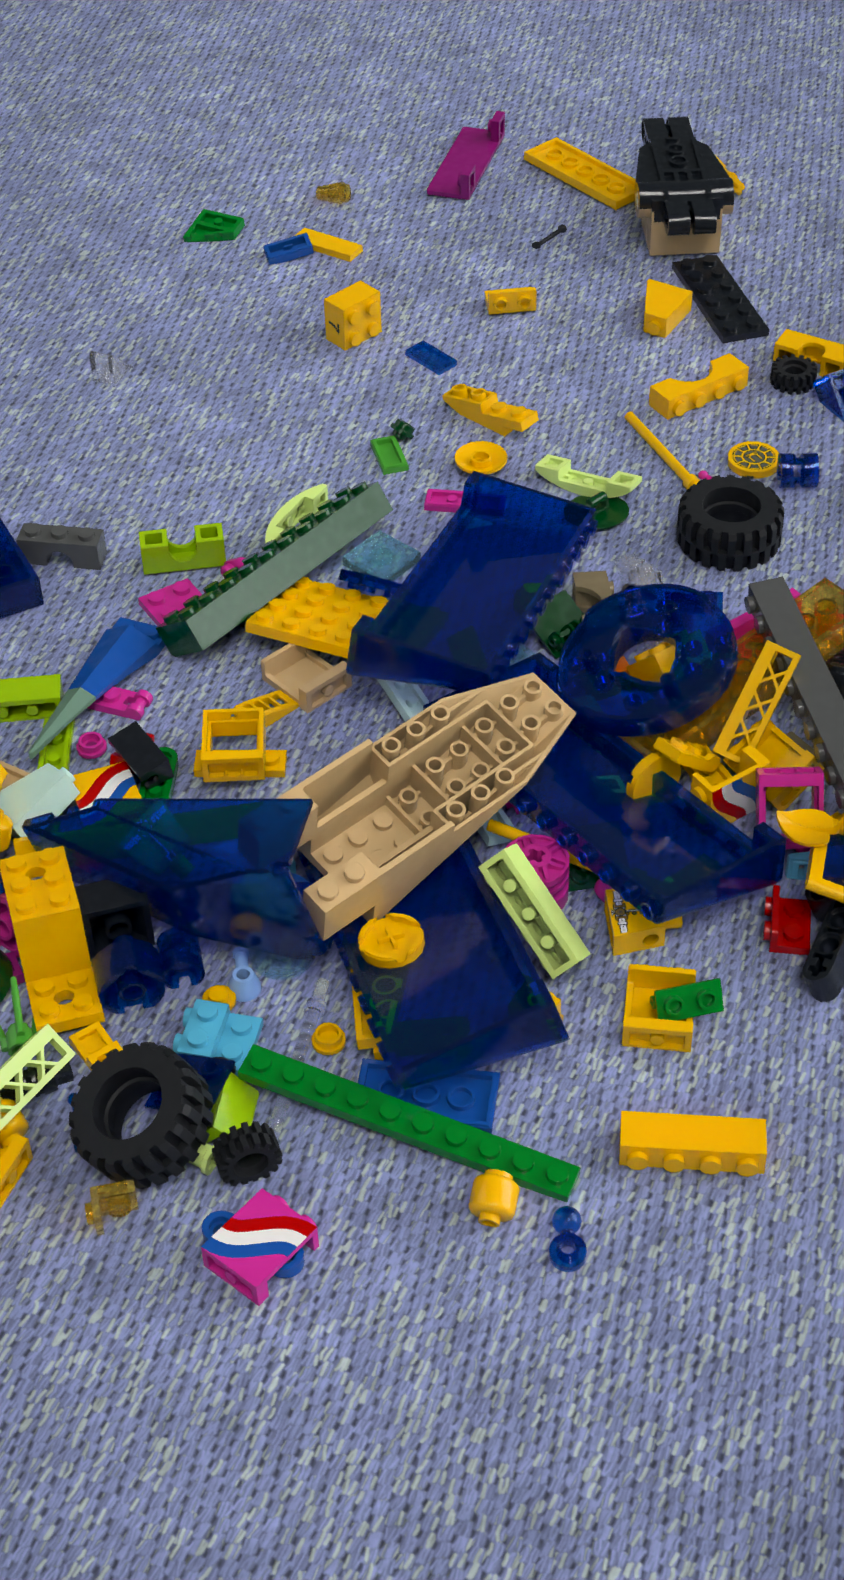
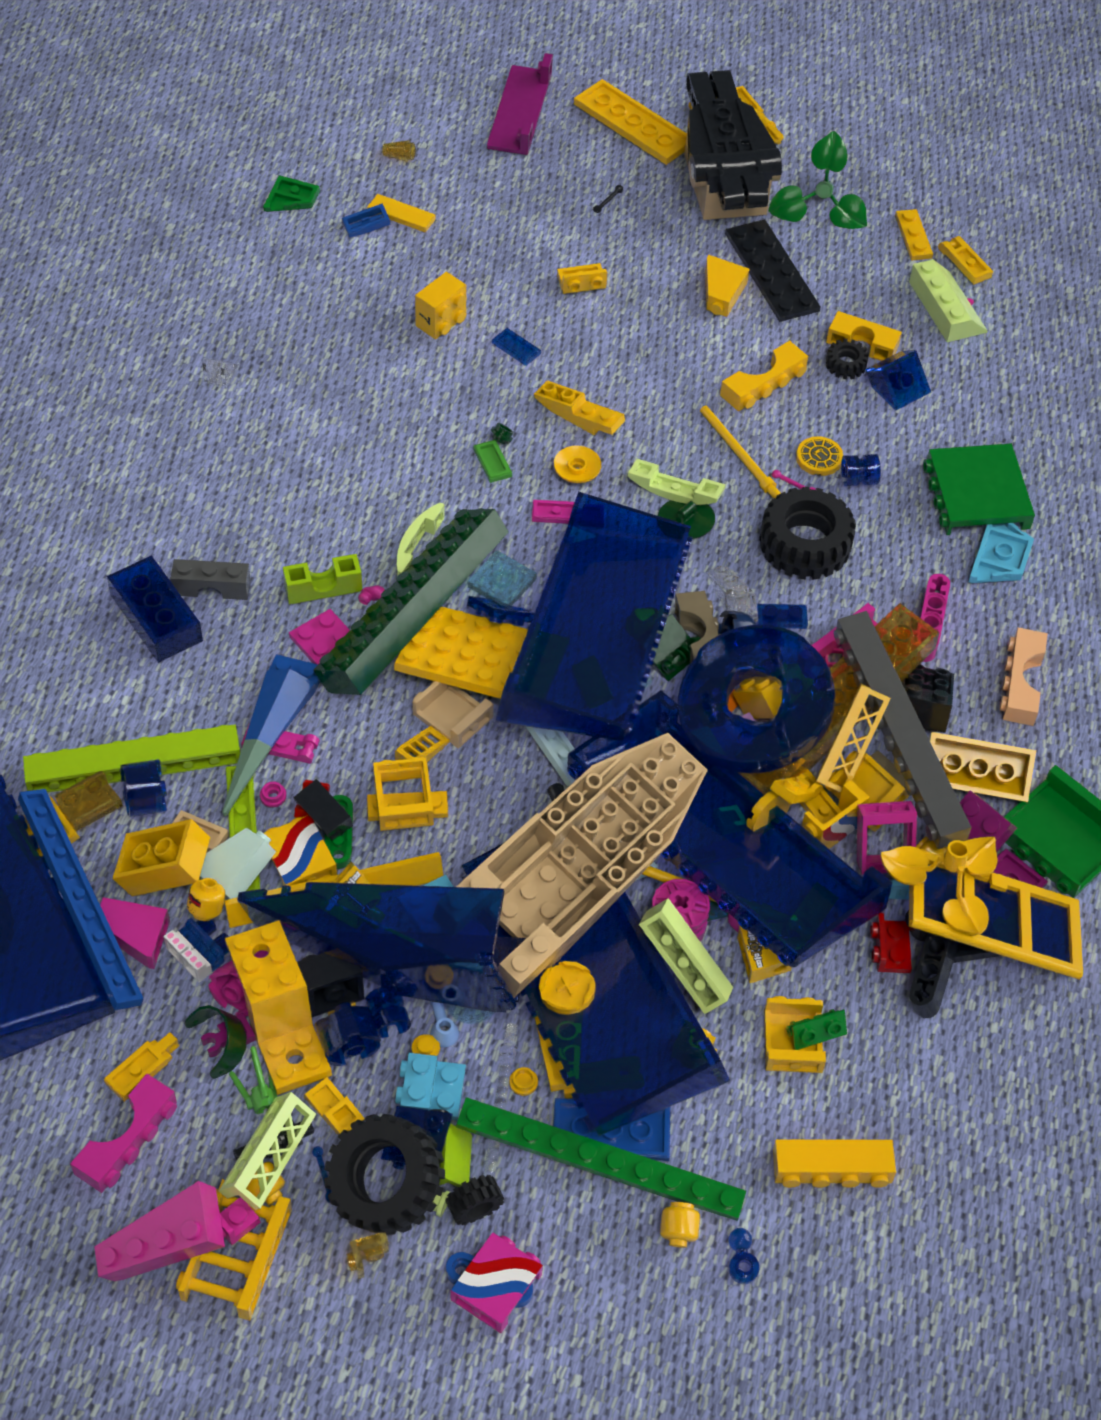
camera: 10 degrees left, 10 degrees up
(811, 246) = (831, 155): none -> green plant

